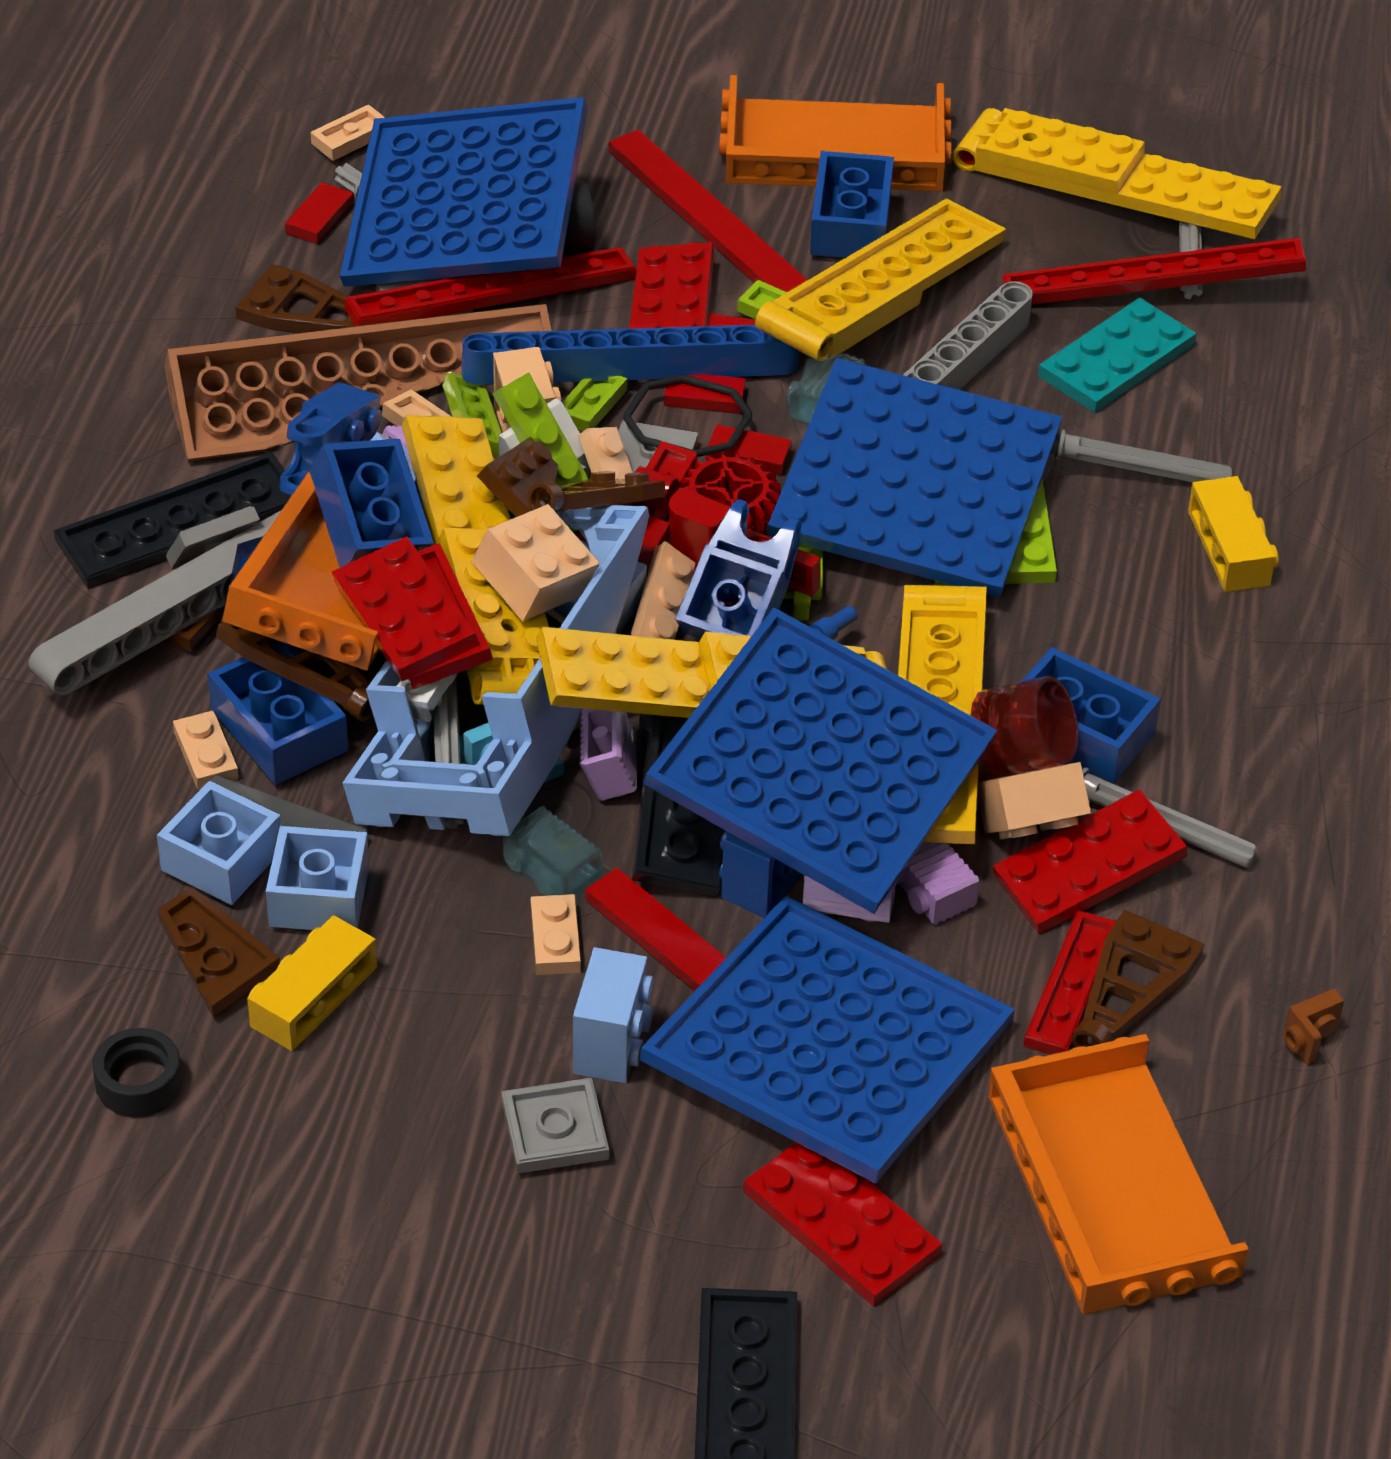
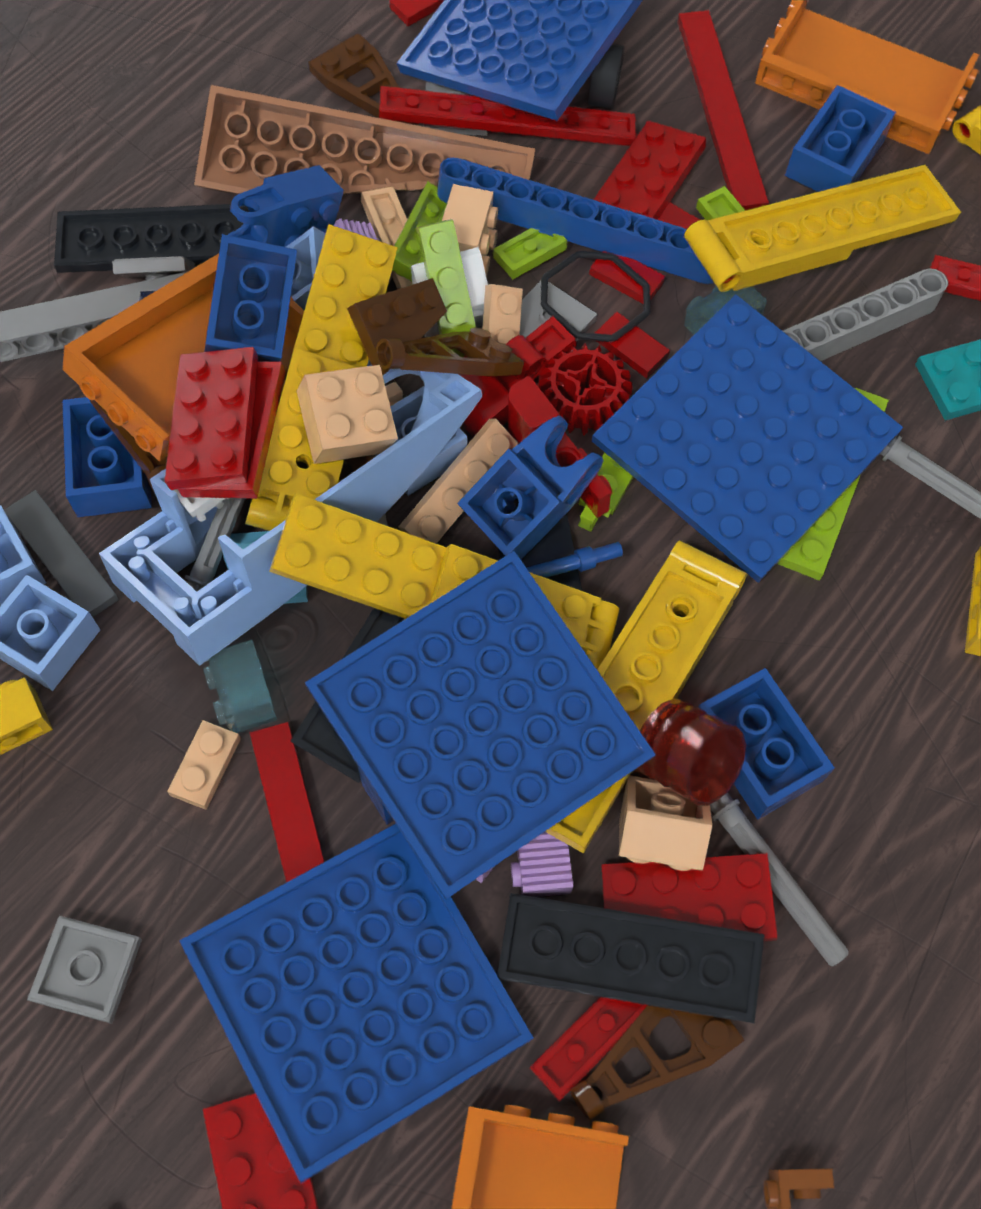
camera: 25 degrees right, 20 degrees up
(205, 748) = (44, 462): light nougat plate -> none
(608, 752) = (333, 619): lavender brick -> none
(611, 1015) = (180, 887): light blue brick -> none
(1064, 913) = (632, 957): none -> black tile

